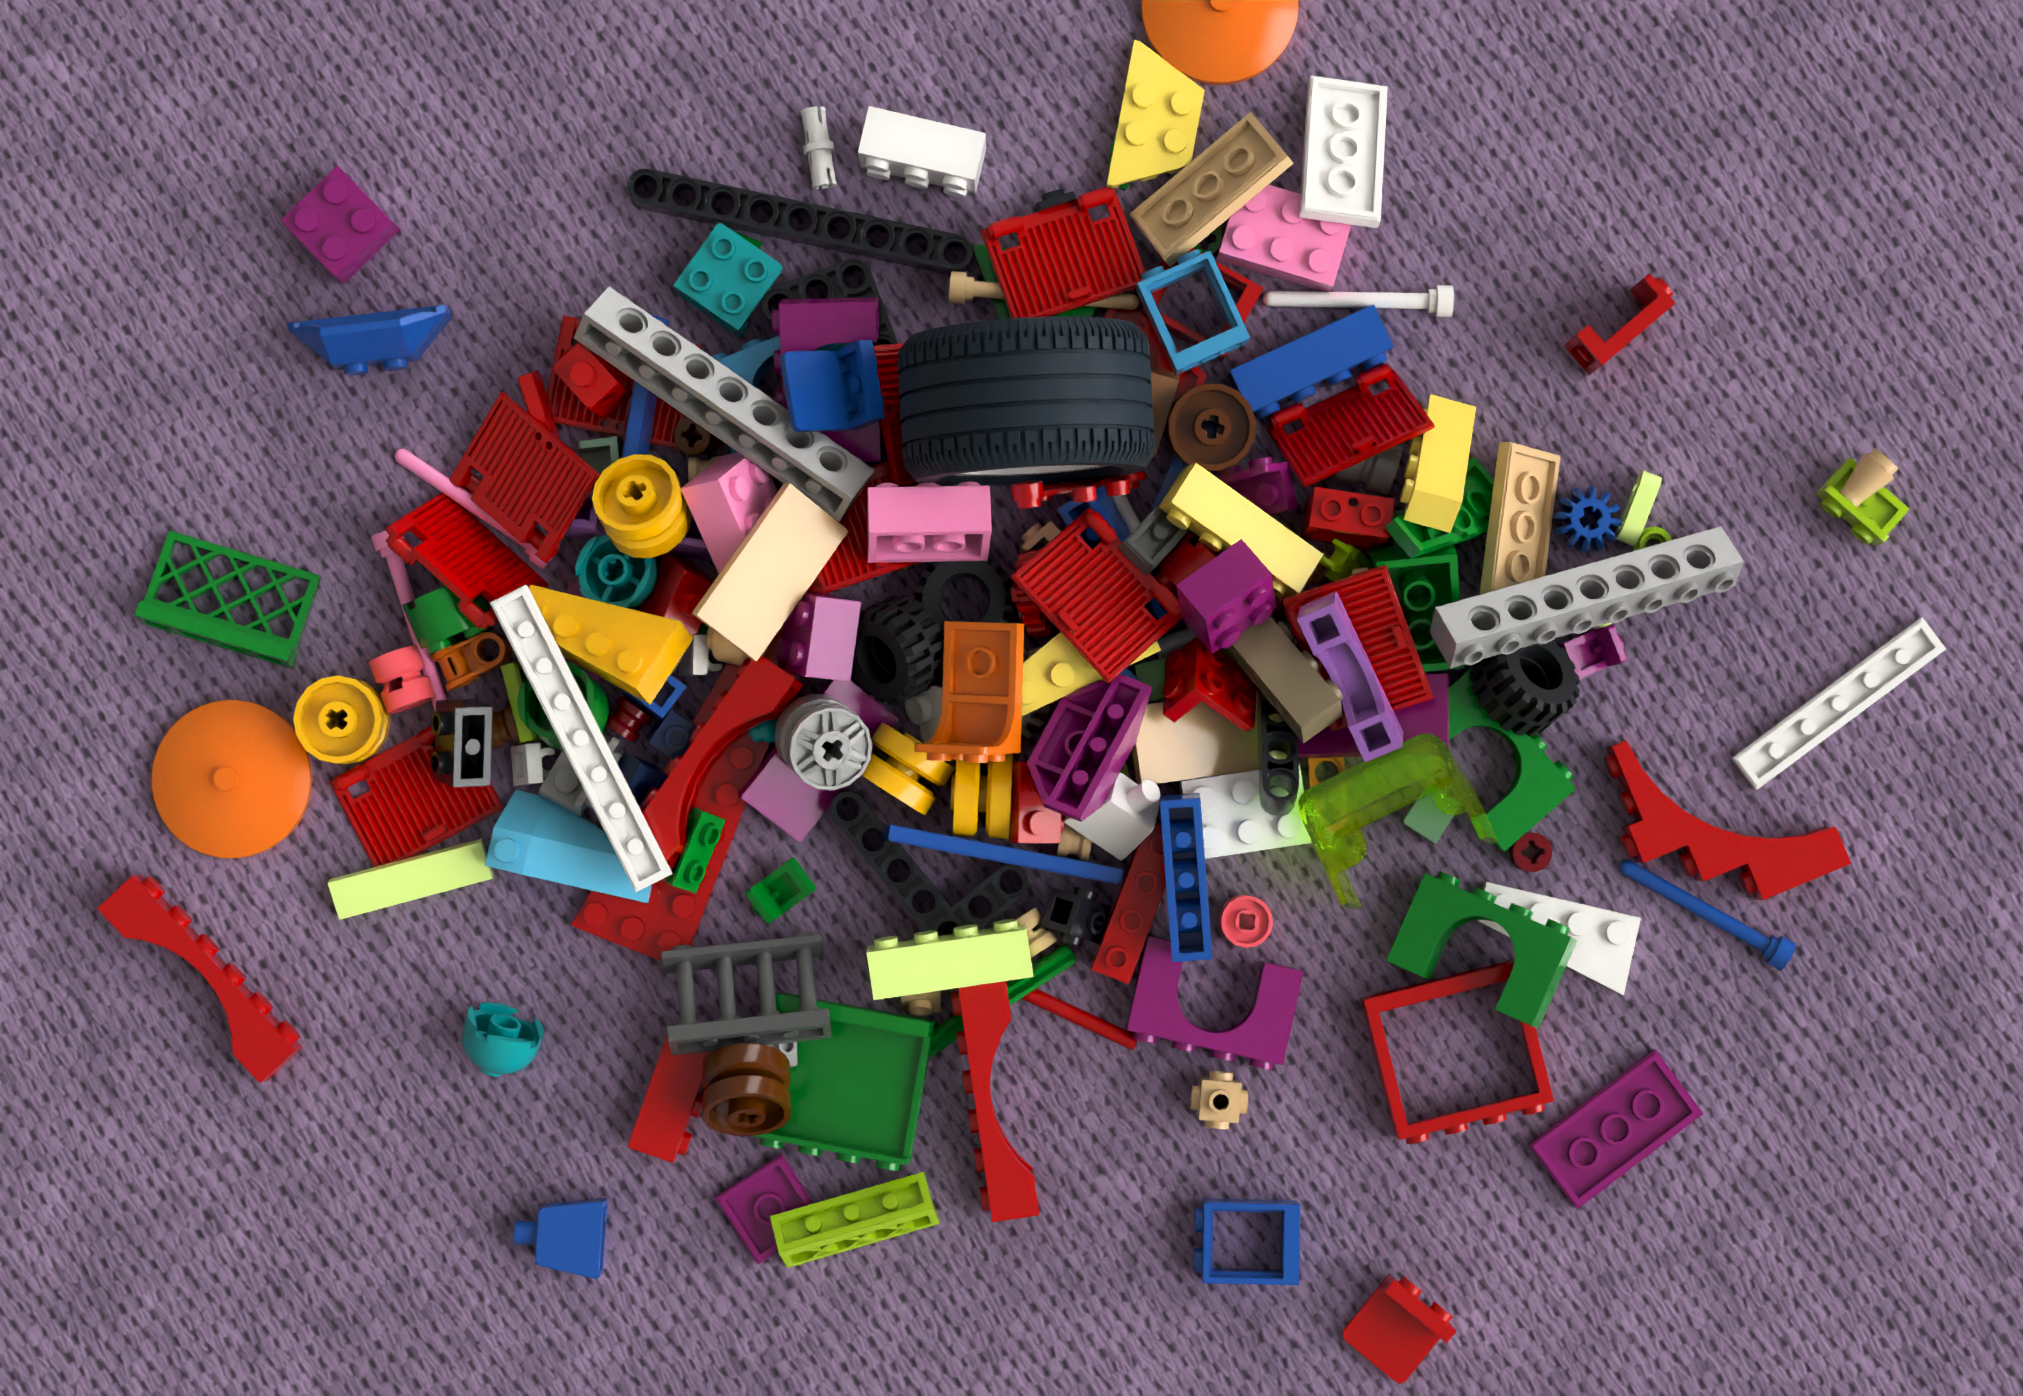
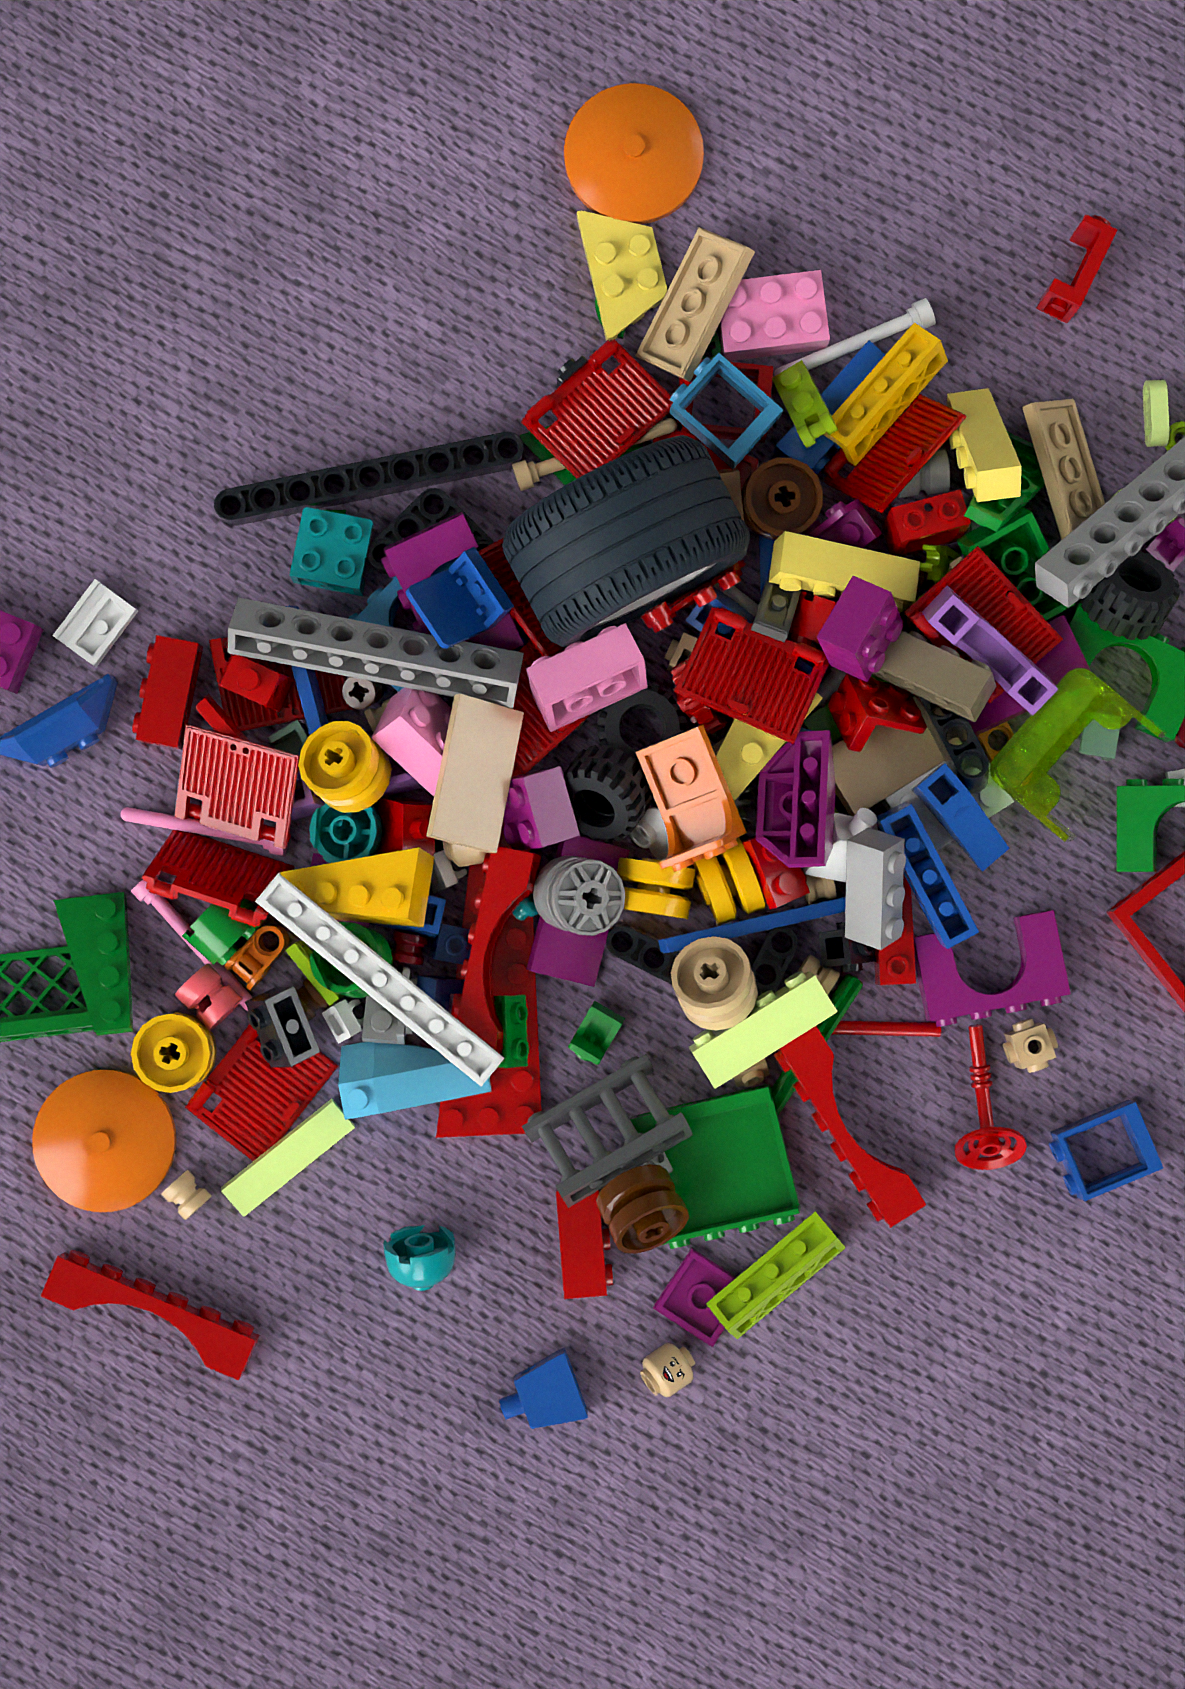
camera: 25 degrees left, 0 degrees up
(289, 868) = (185, 1193): none -> tan wheel
(311, 586) = (101, 957): none -> green wing
(455, 247) = (95, 623): none -> white plate
(498, 349) = (167, 692): none -> red brick
(701, 1267) = (667, 1370): none -> tan head
(818, 147) = (357, 412): white pin -> none
(920, 892) = (714, 983): none -> tan wheel
(921, 152) = (444, 377): white brick -> none
(1125, 867) = (874, 888): none -> light grey brick
(1135, 1171) = (987, 1135): none -> red dish
(1245, 921) = (987, 890): coral wheel -> none
(1248, 834) = (961, 816): none -> blue slope
(1277, 340) = (804, 403): none -> lime plate
(1343, 152) = (789, 227): white tile -> none
(1365, 365) = (887, 392): none -> yellow fence
(1575, 512) = (1107, 433): blue gear -> none

